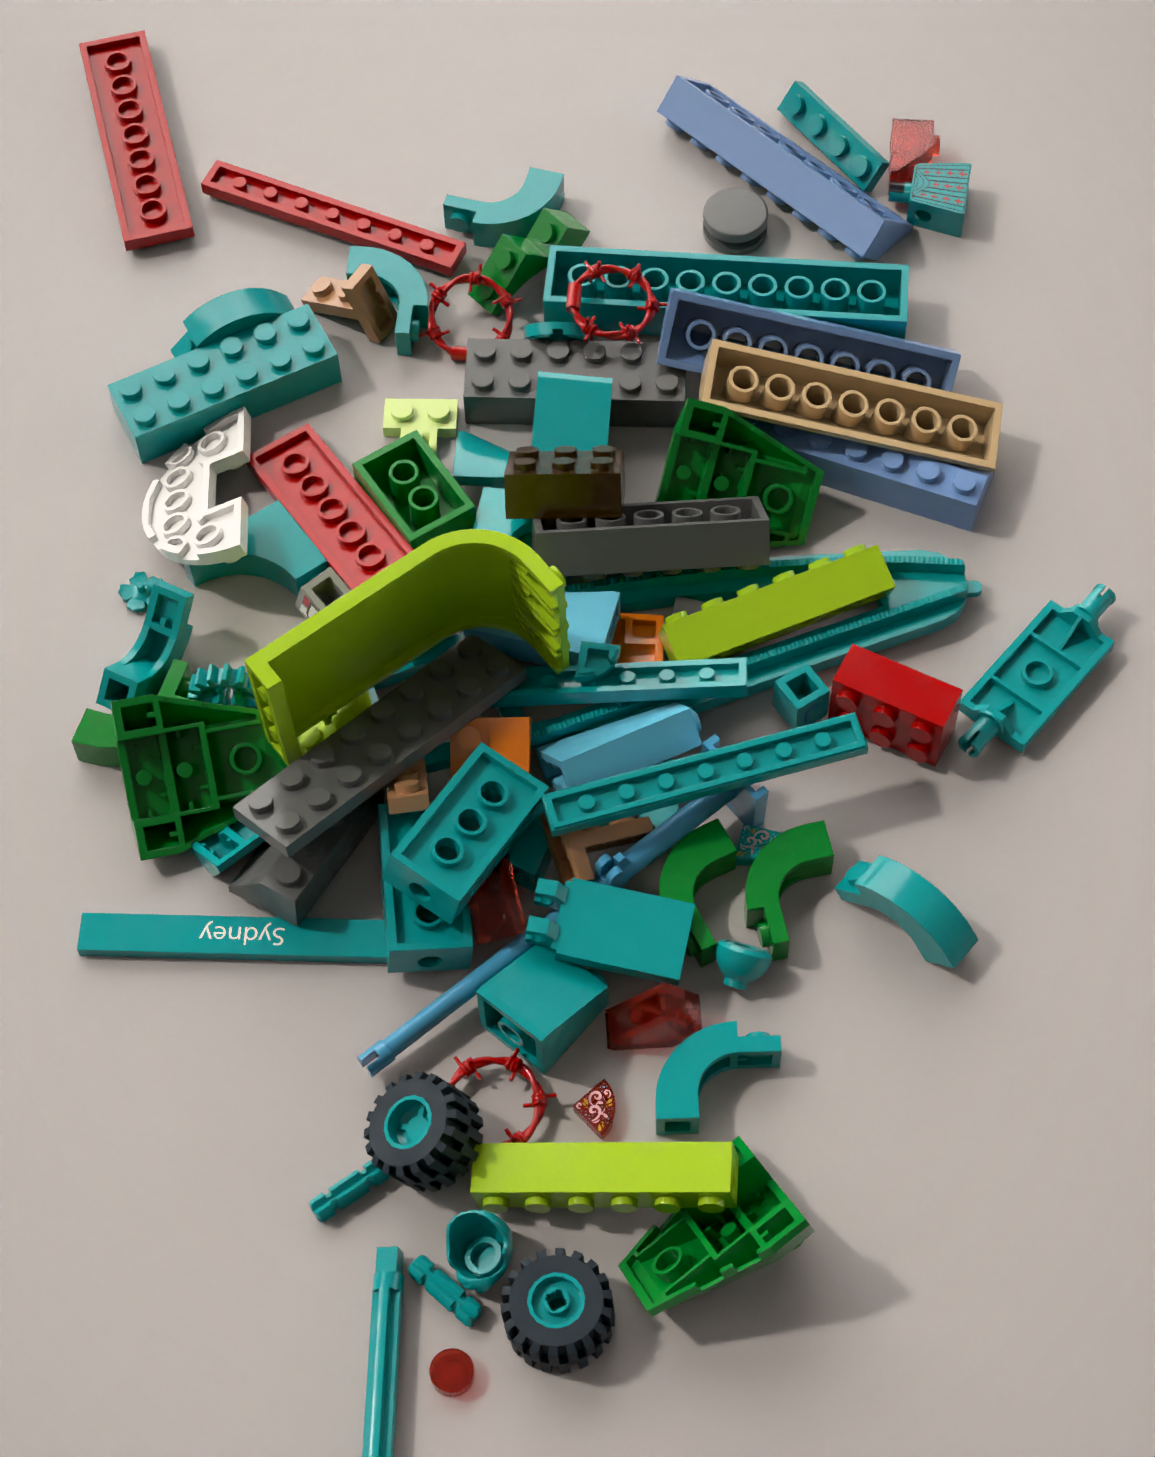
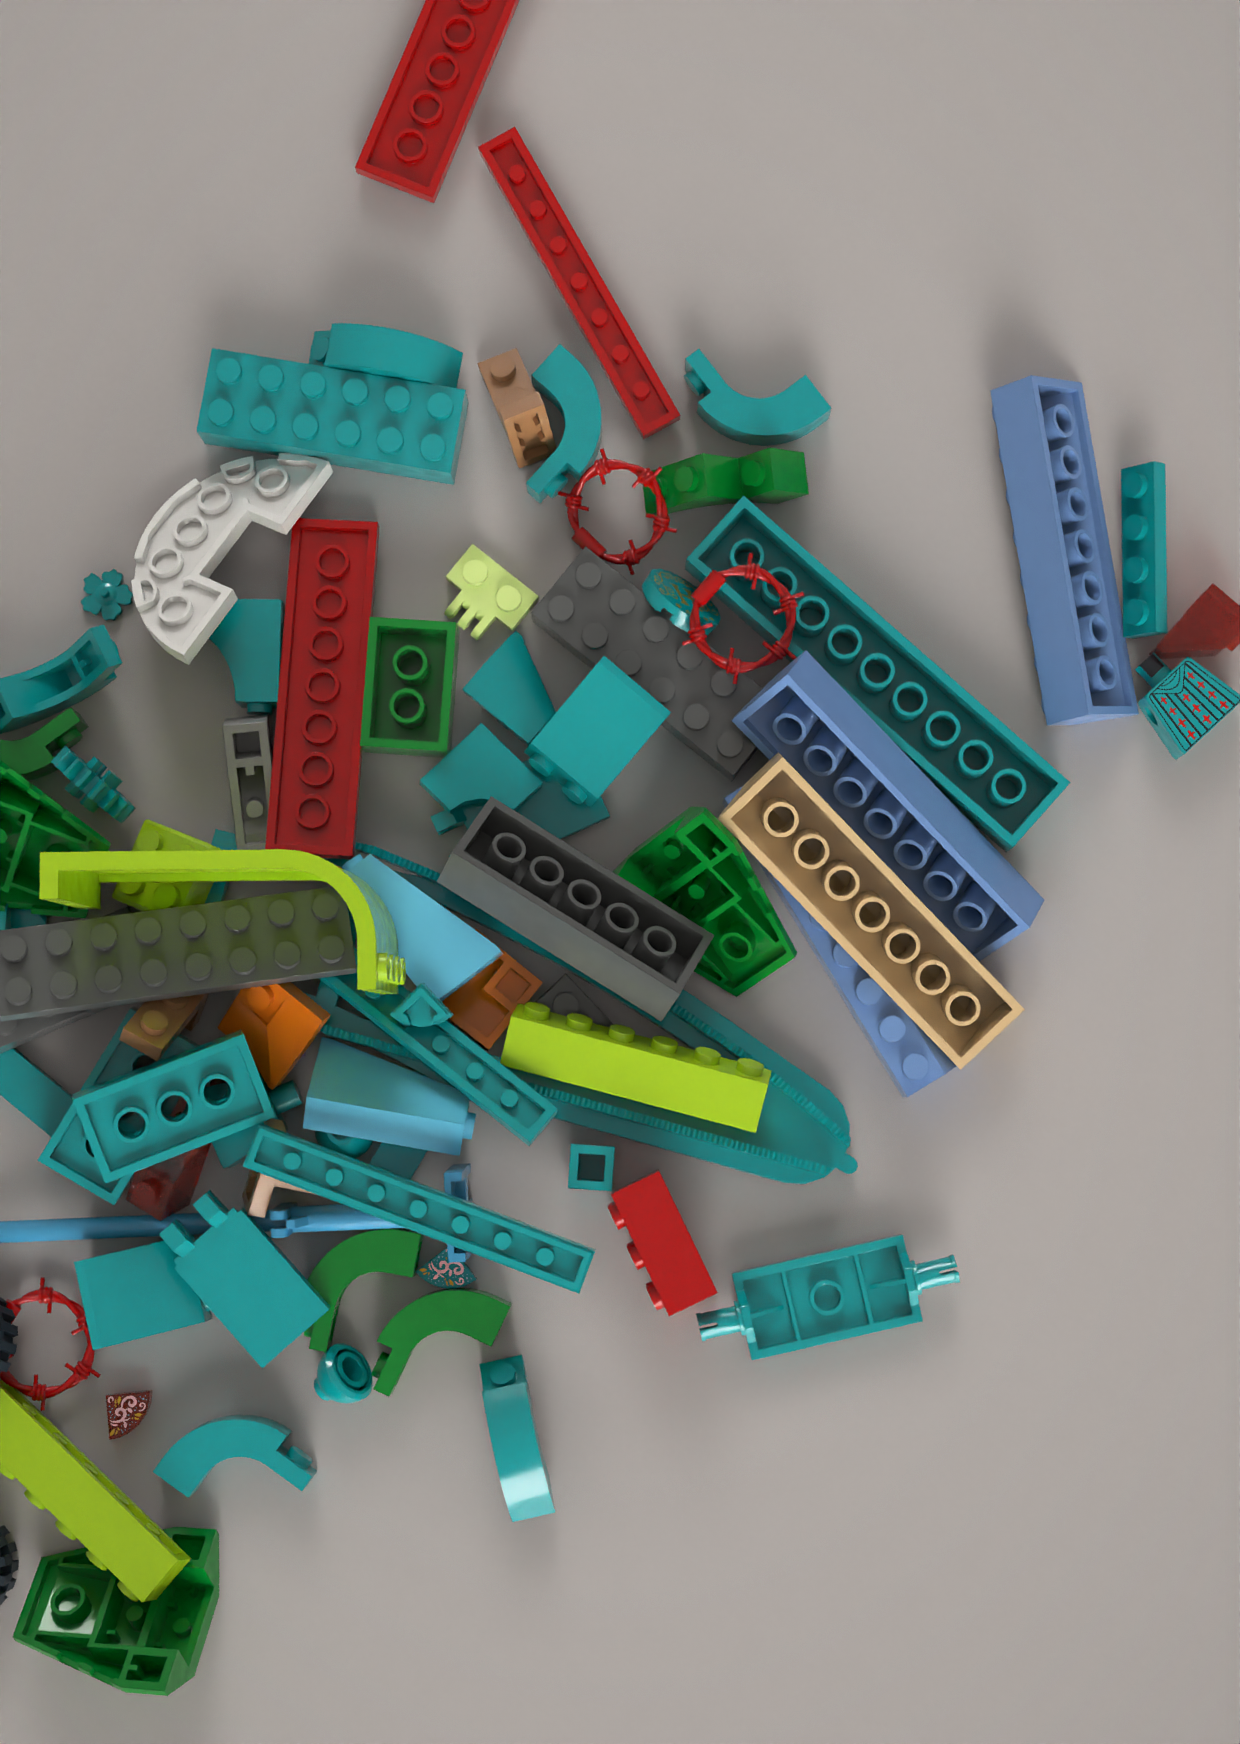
camera: 40 degrees right, 25 degrees up
(564, 483) = (534, 801): dark brown brick -> none
(653, 1019) = (228, 1373): clear red slope -> none
(735, 221) = (964, 582): head -> none

